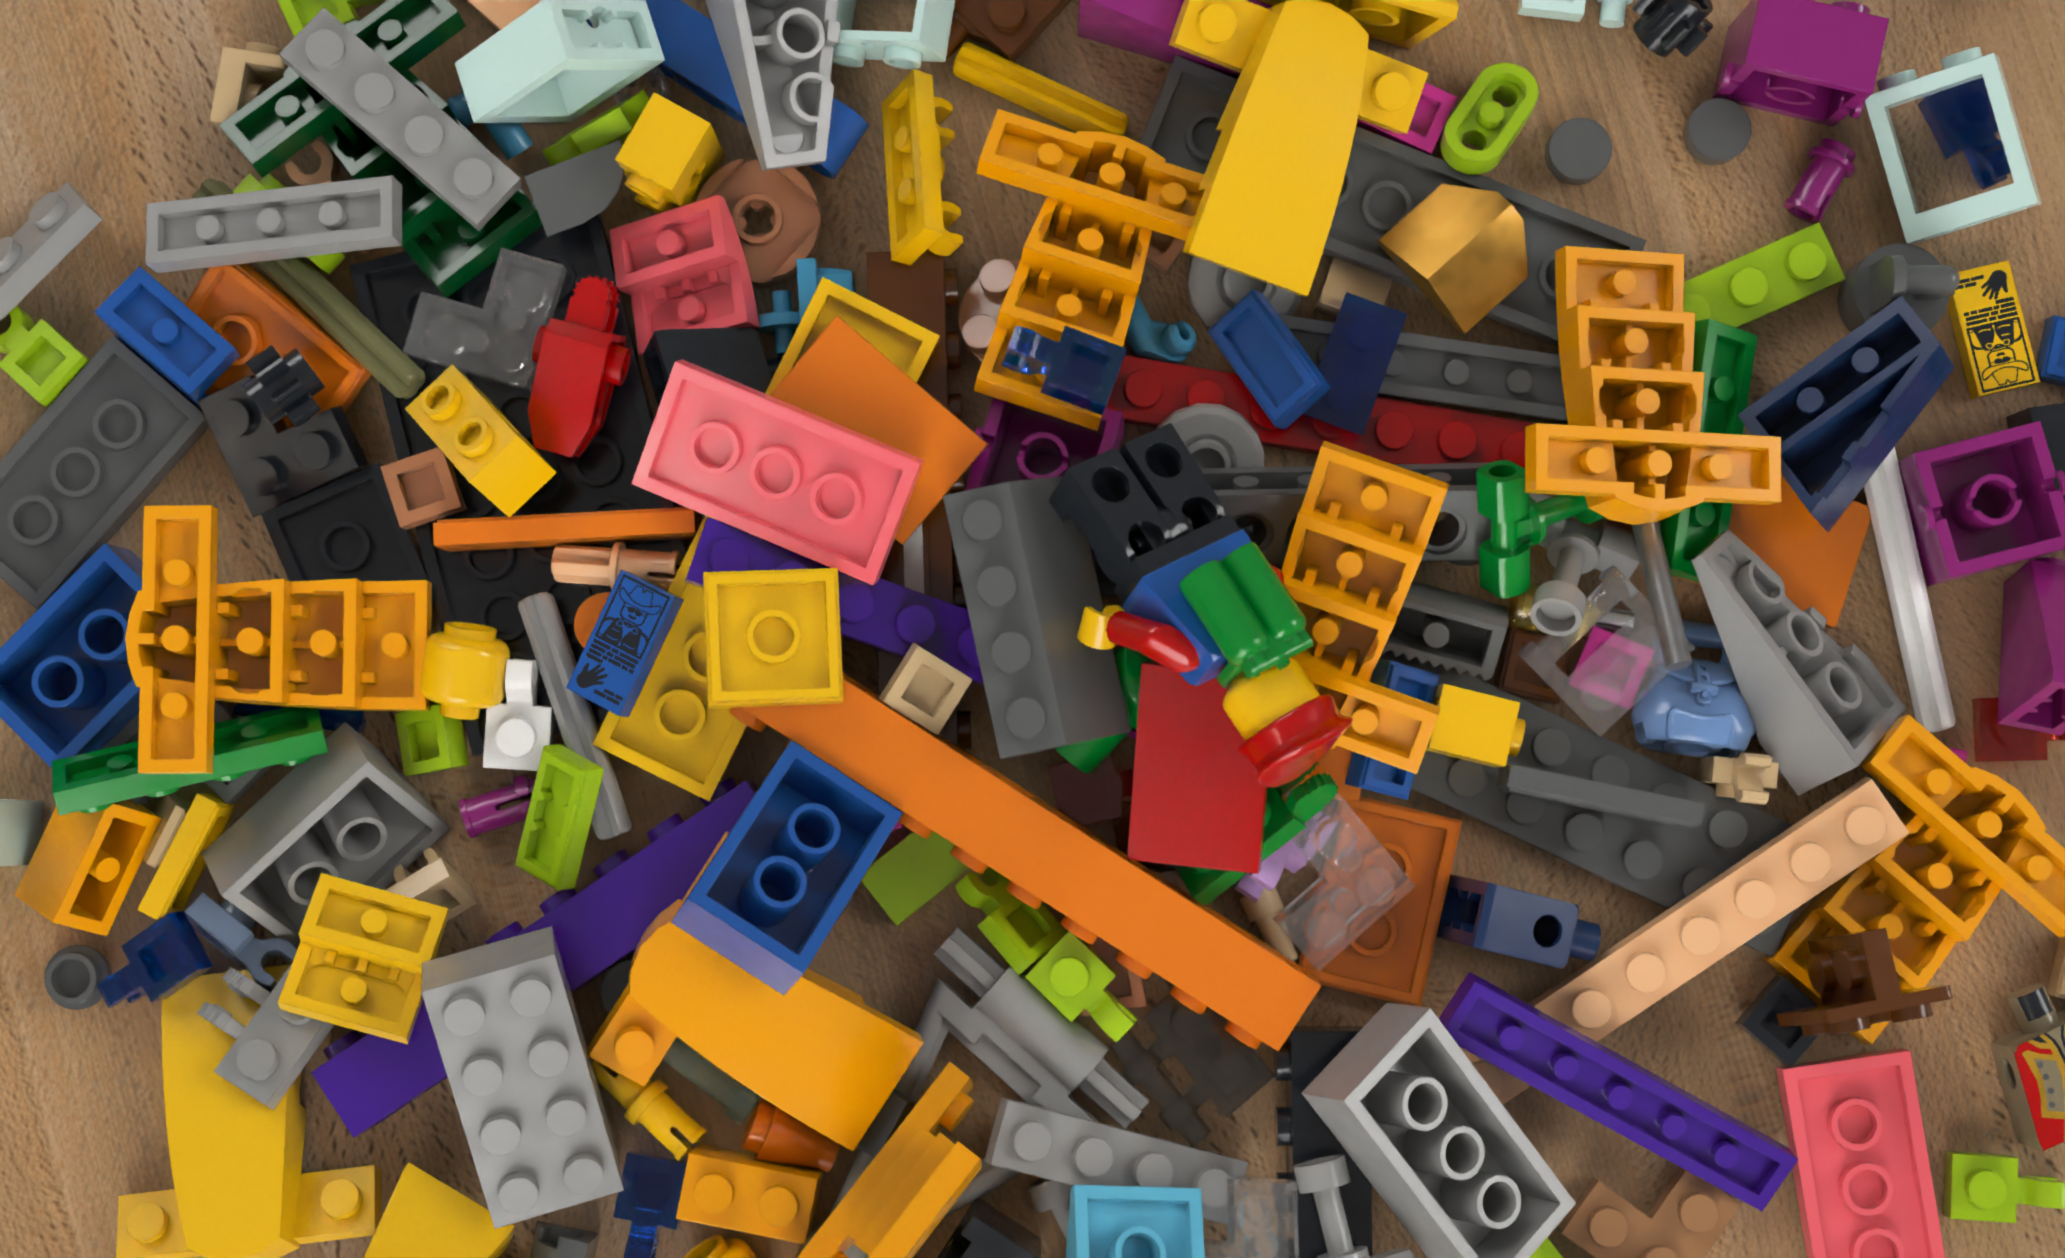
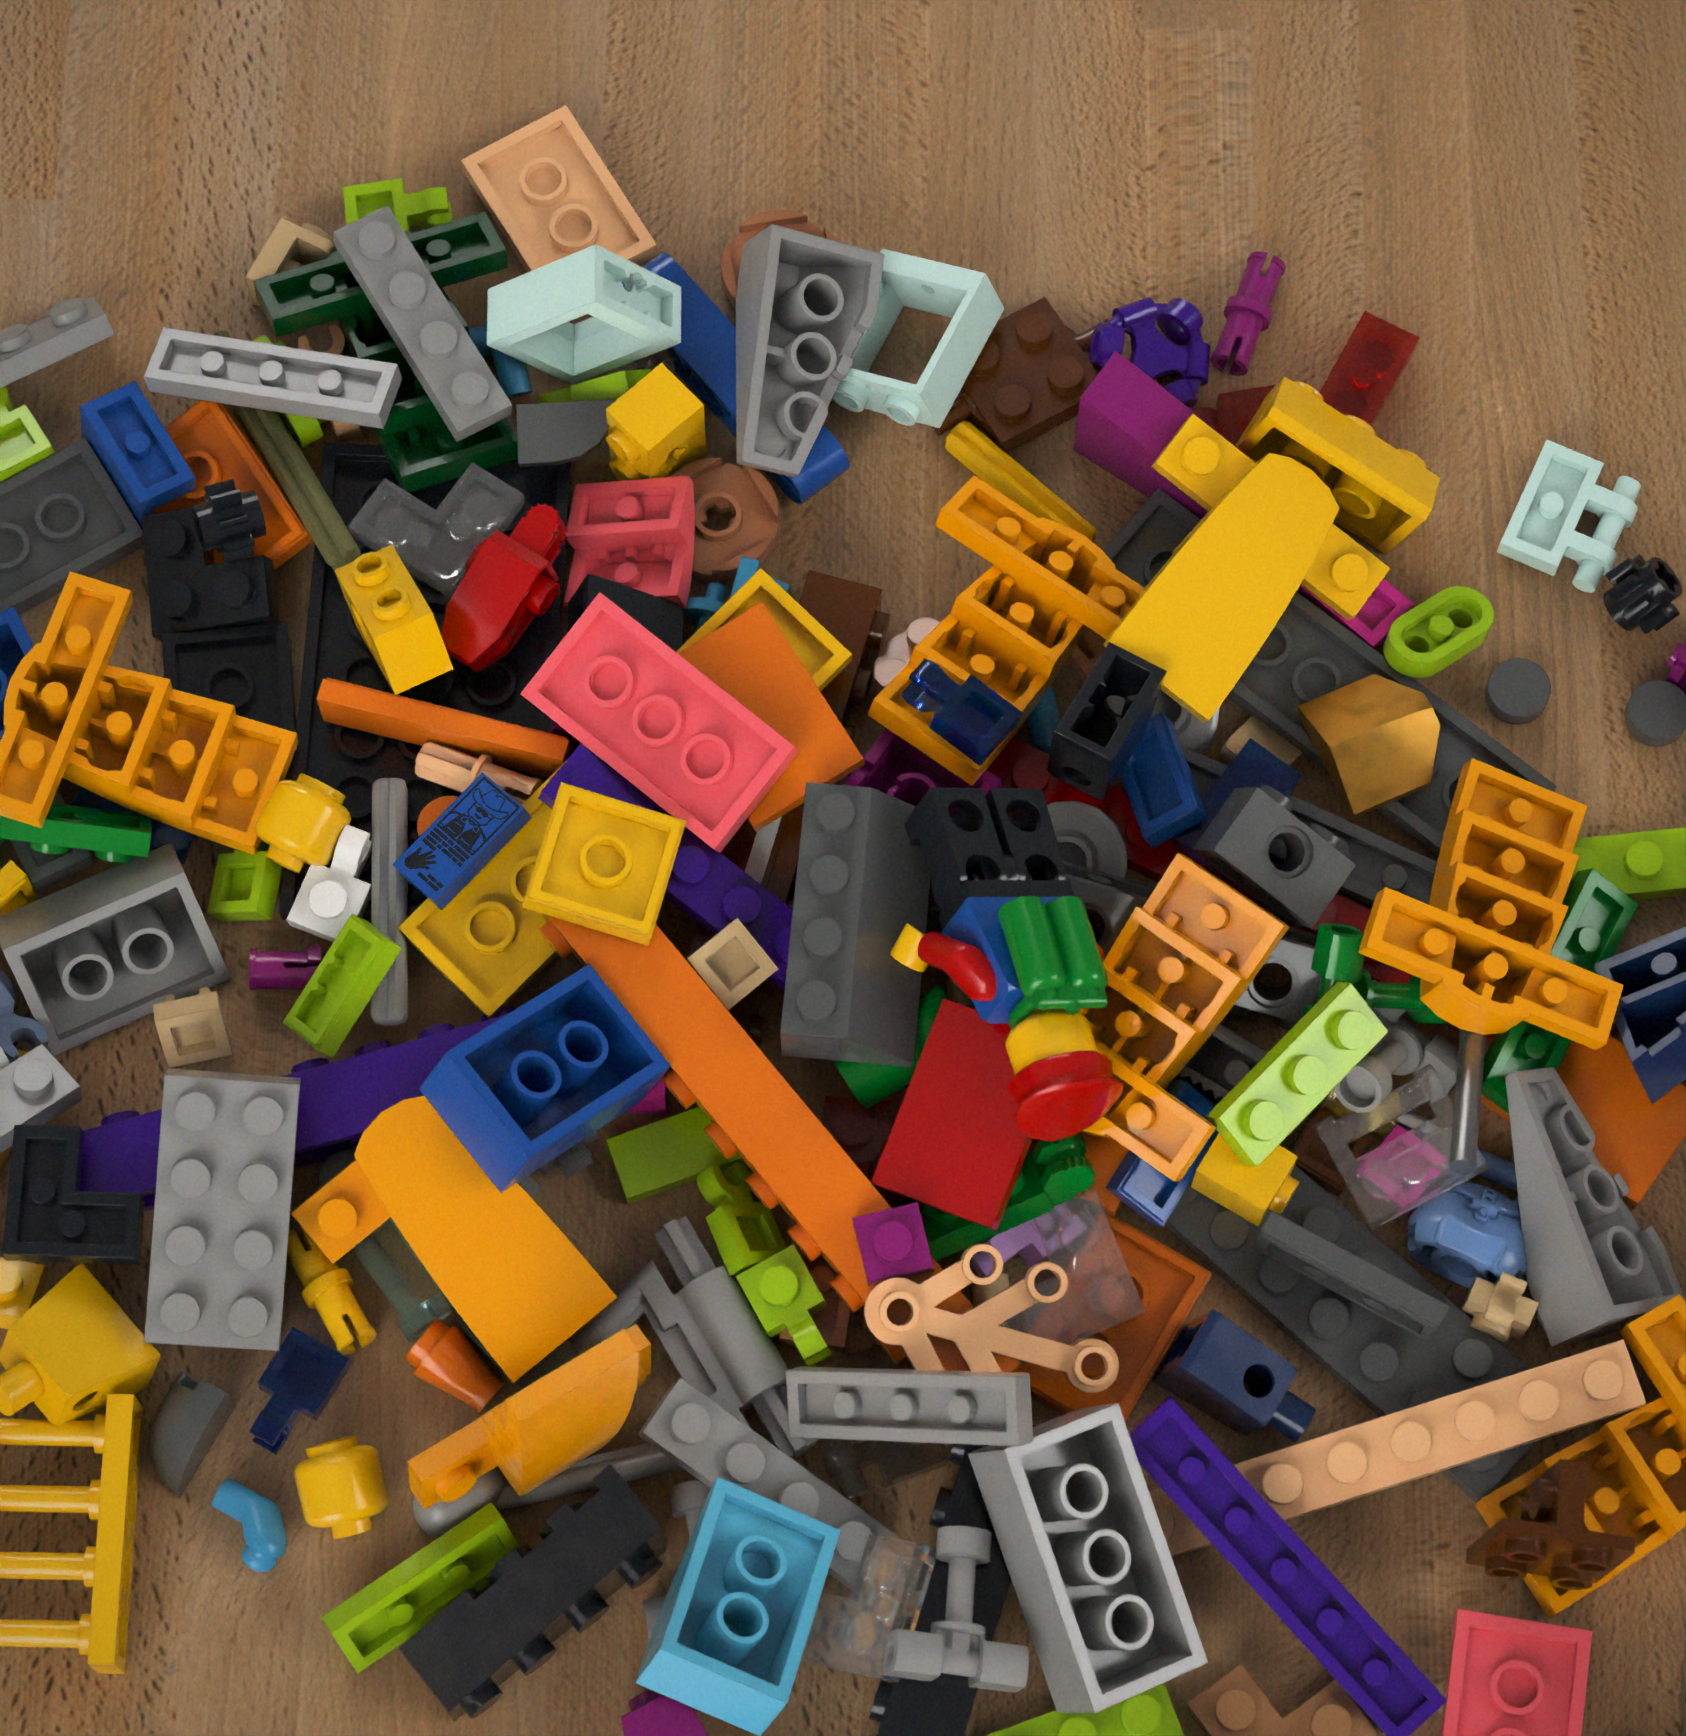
camera: 15 degrees right, 15 degrees down
(359, 1135) = (51, 1216): none -> black plate
(363, 958) = (111, 1053): yellow slope -> none
(423, 488) = (322, 650): nougat plate -> none
(749, 1195) = (394, 1398): light orange brick -> none
(916, 170) = (879, 510): yellow plate -> none
(1168, 916) = (893, 1243): none -> magenta plate
(1207, 338) = (1093, 740): none -> black torso
(1237, 1071) = (910, 1405): none -> light grey plate
(1278, 972) = (978, 1329): none -> light nougat plant
(1374, 398) = (1239, 848): none -> dark grey brick
(1499, 627) = (1297, 1074): none -> lime plate
(1762, 1024) = (1465, 1582): black plate -> none

